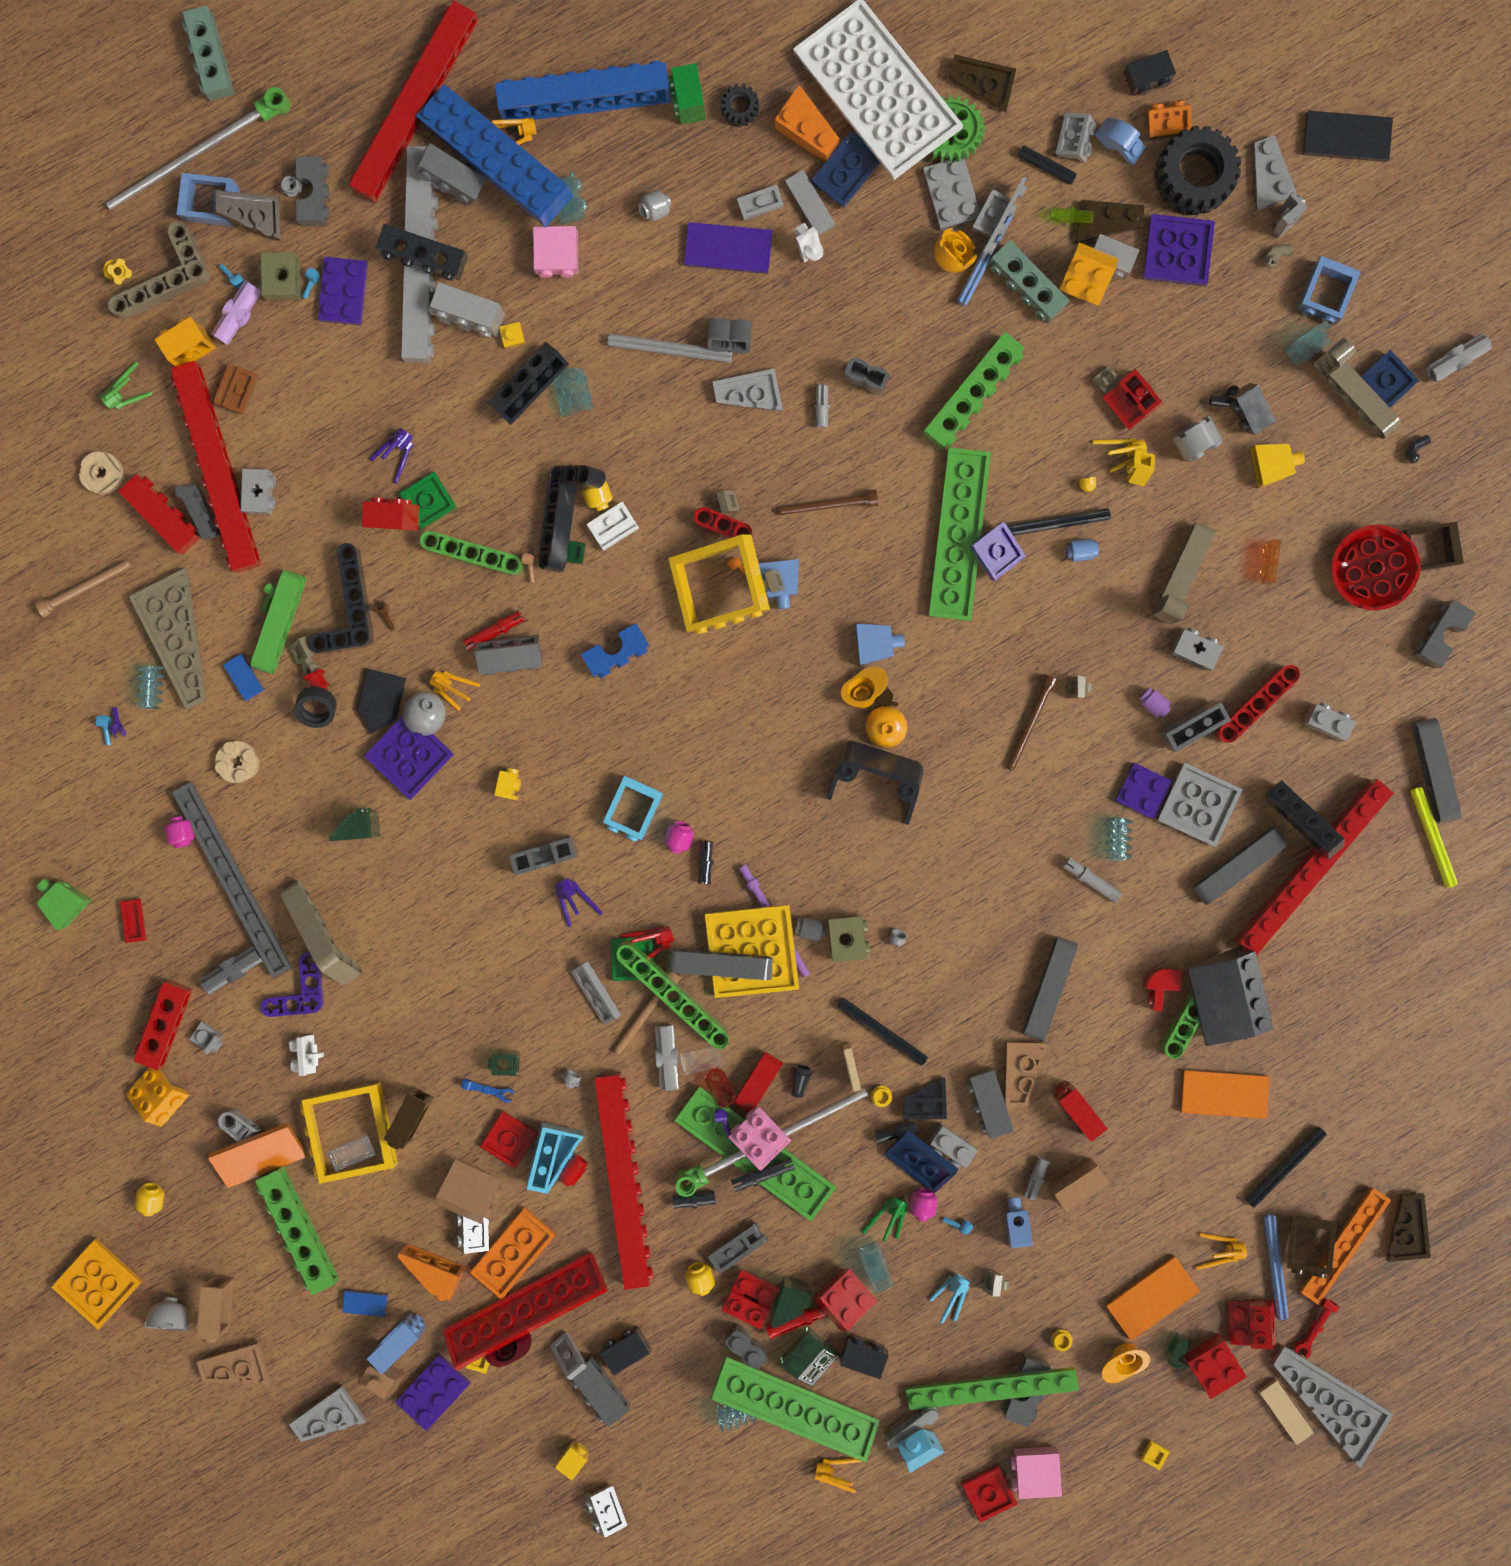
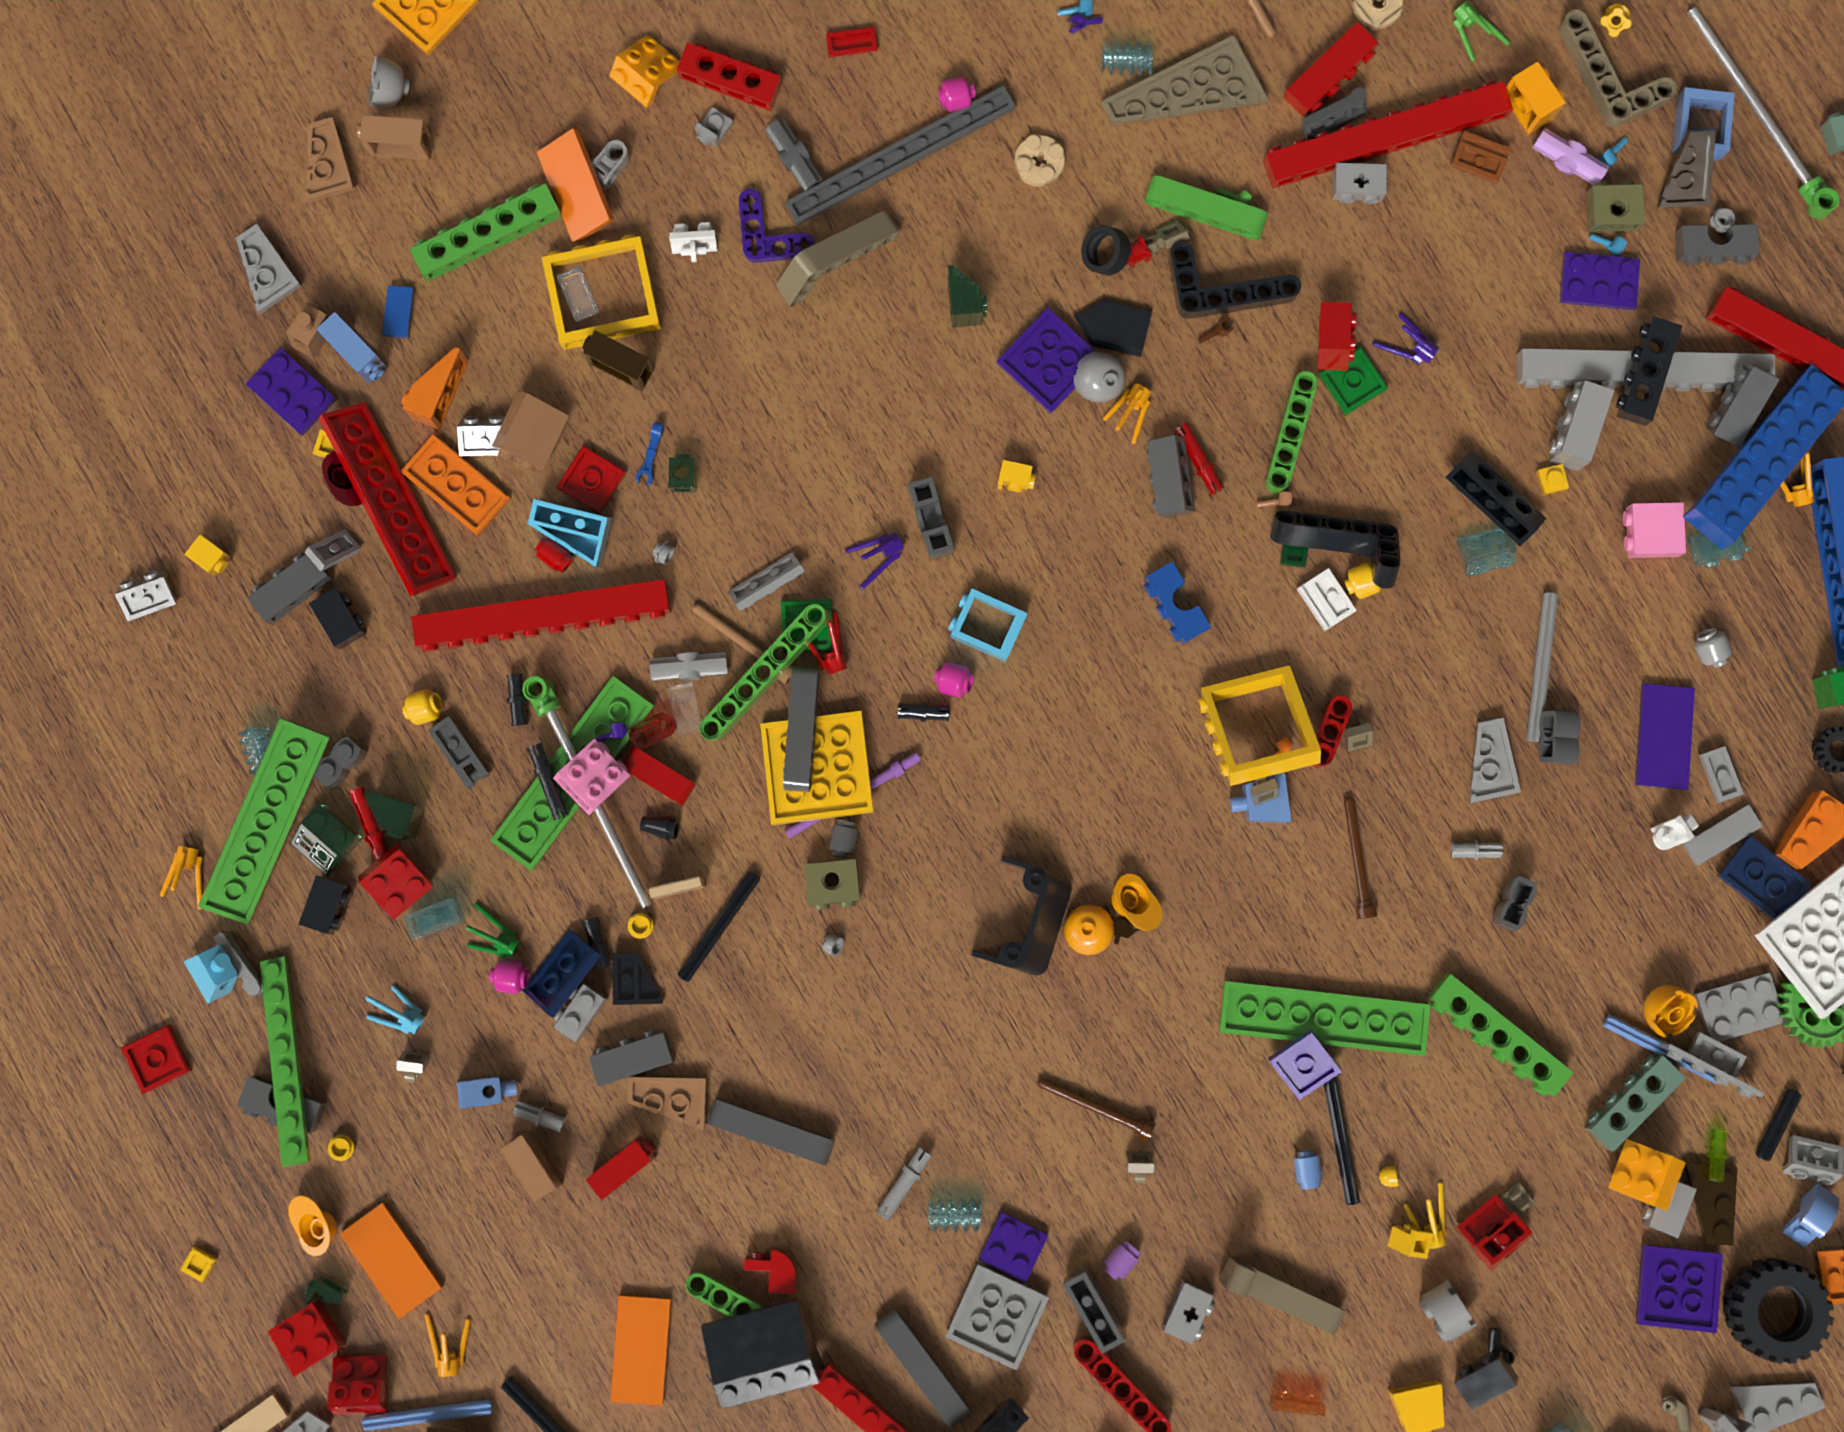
camera: 90 degrees right, 5 degrees down
(149, 1199) = (524, 62): yellow head -> none
(244, 677) = (1139, 168): blue tile -> none
(749, 1309) = (387, 762): red brick -> none
(876, 643) = (1190, 917): medium blue torso -> none
(965, 1227) = (479, 1028): dark azure hand -> none
(1036, 1472) = (180, 1116): bright pink brick -> none

